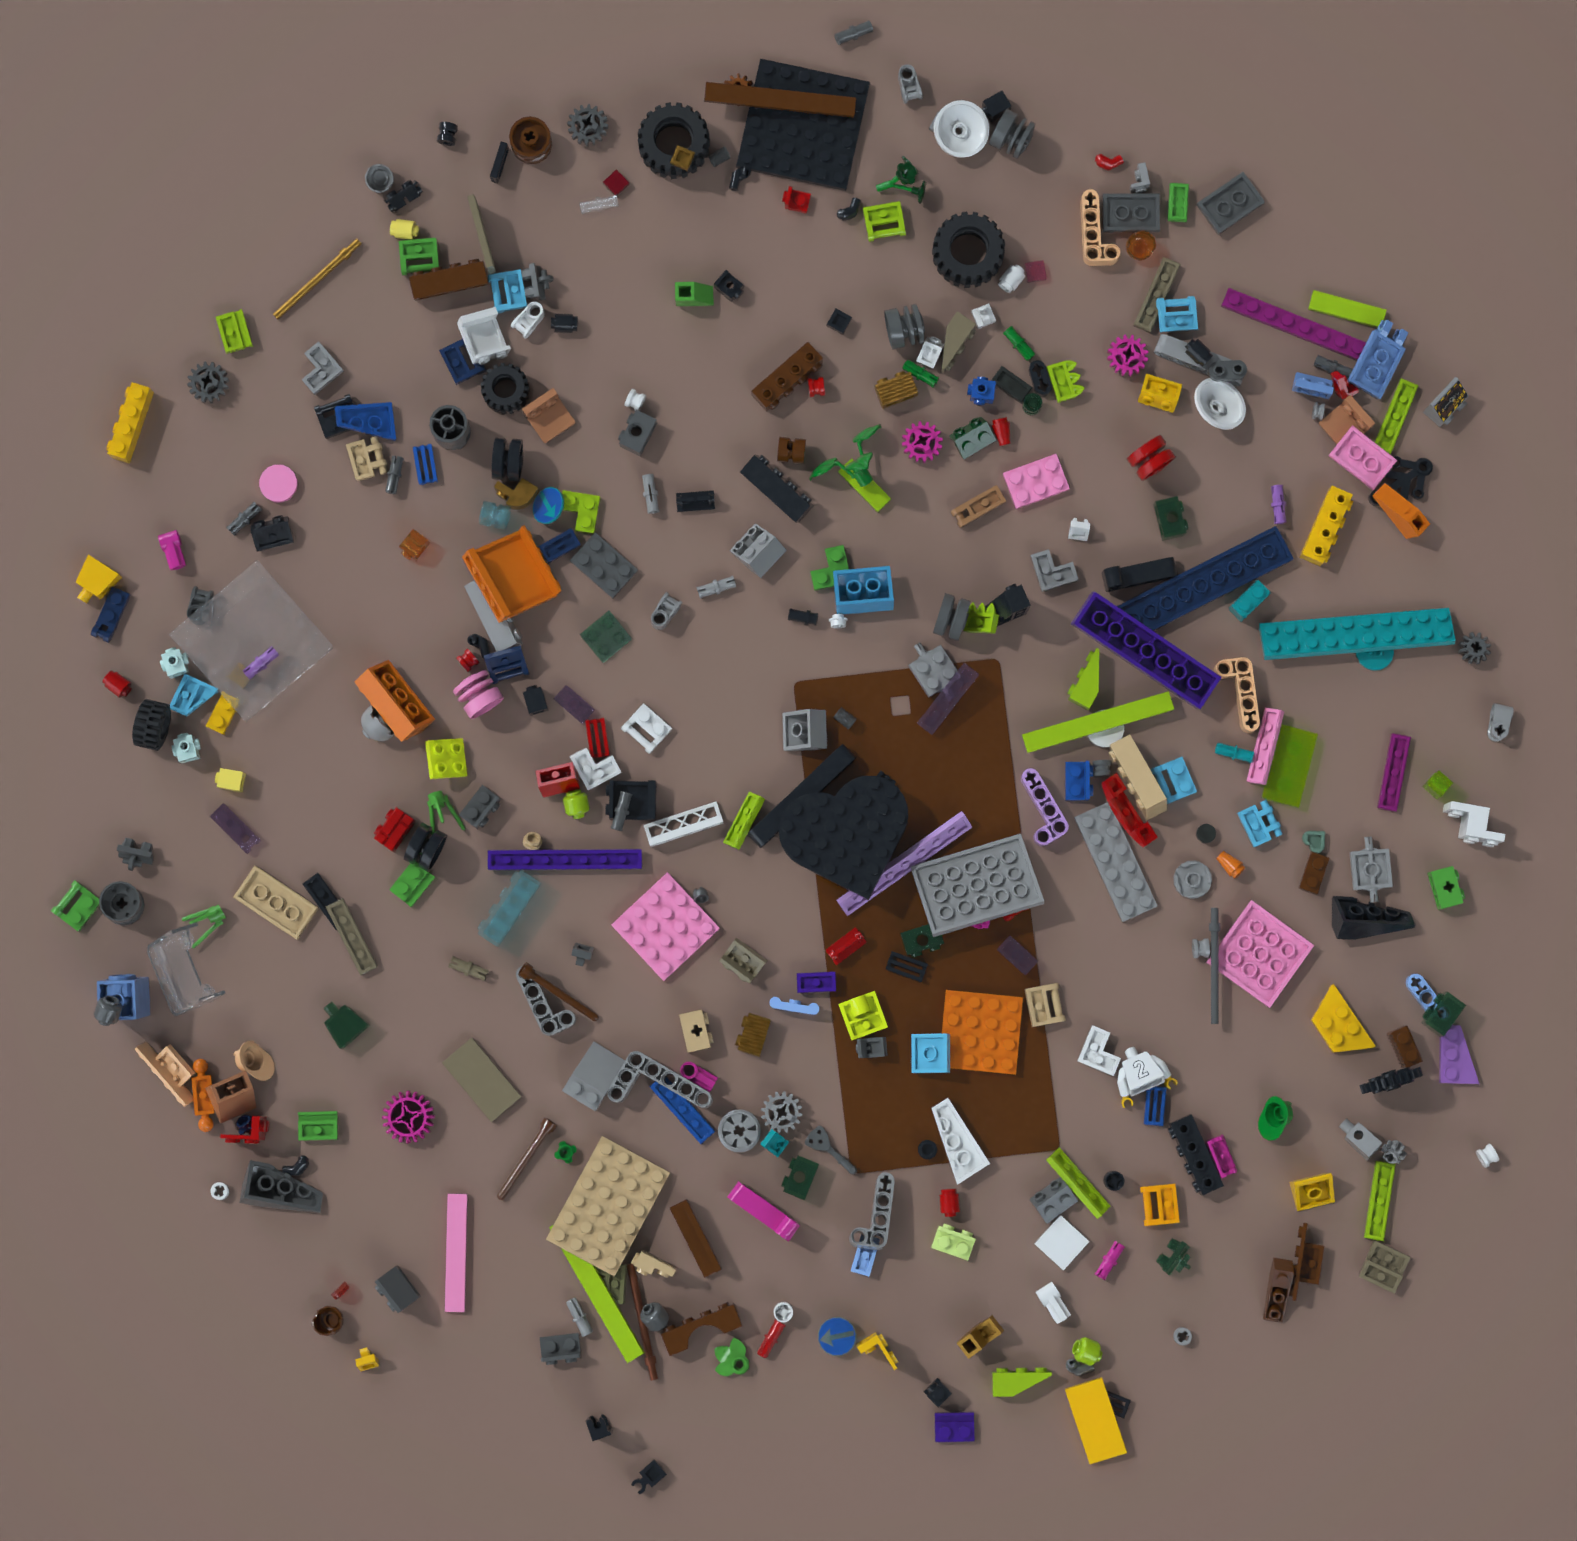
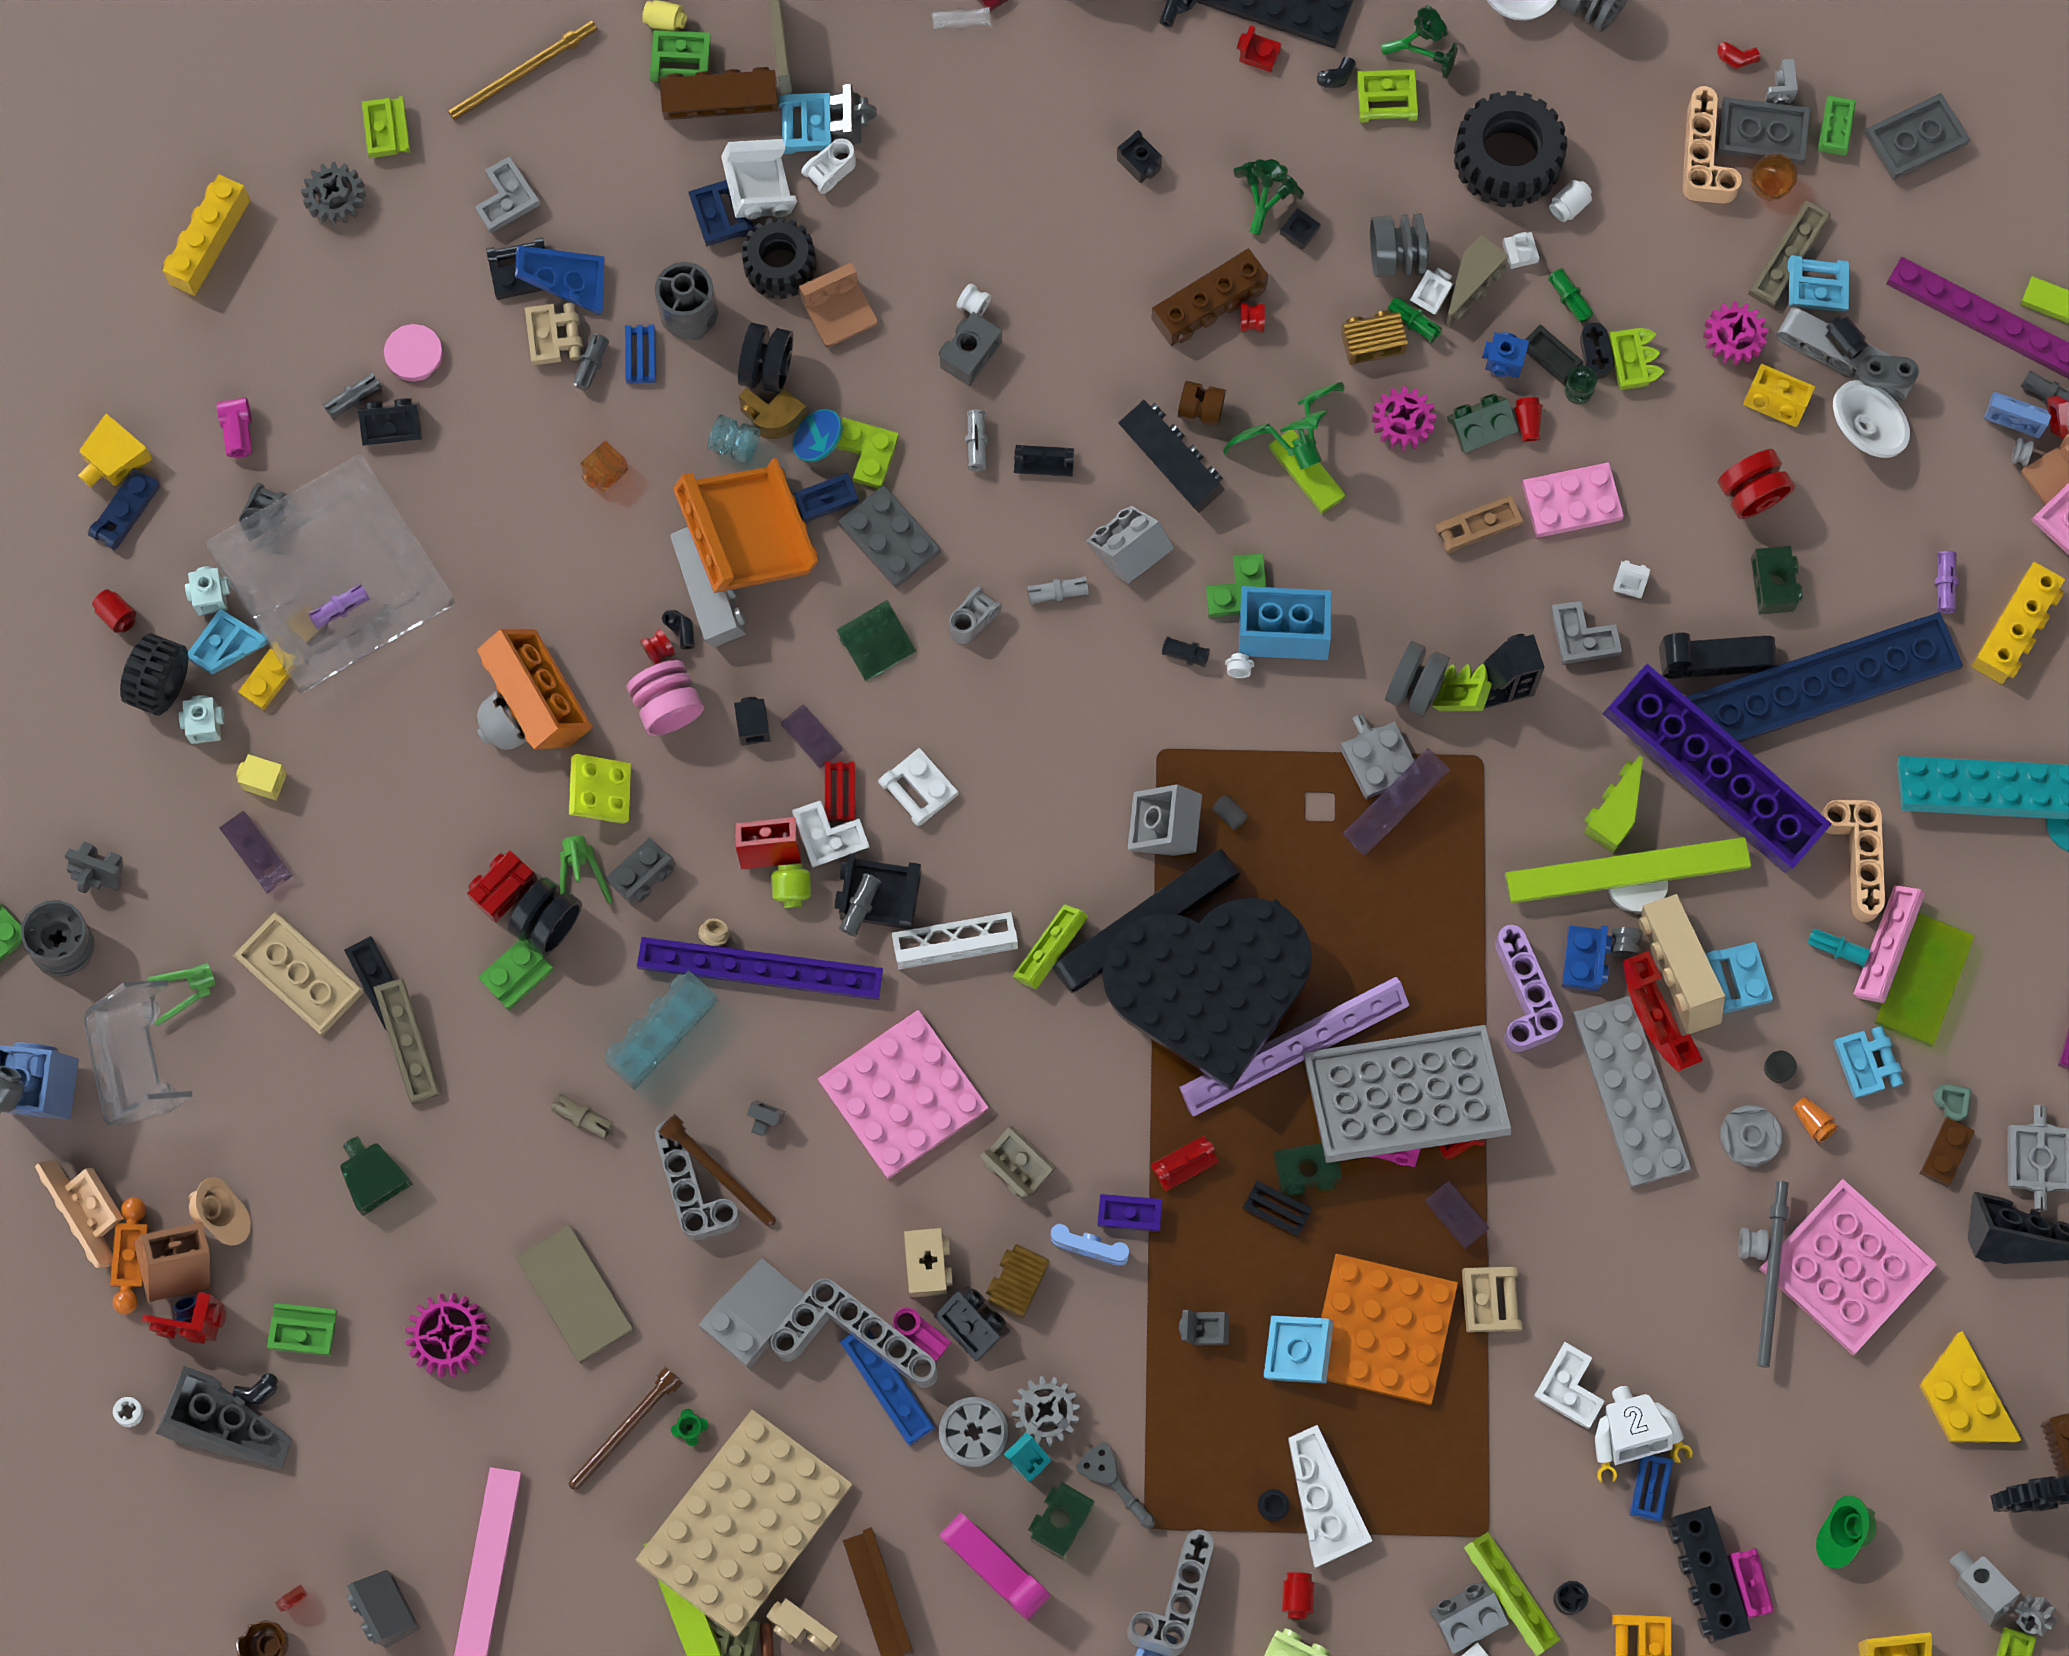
camera: 10 degrees right, 10 degrees down
(506, 660) = (716, 652): dark blue plate -> none
(564, 323) = (883, 178): black brick -> none
(693, 294) = (1084, 160): bright green slope -> none
(700, 895) = (965, 1059): dark grey hinge -> none
(729, 1063) = (972, 1322): none -> black bracket
(814, 291) = (1268, 172): none -> dark green plant
(863, 1015) = (1197, 1275): neon yellow plate -> none
(1035, 271) = (1607, 197): clear pink tile -> none
(1249, 600) = (1886, 718): teal brick -> none

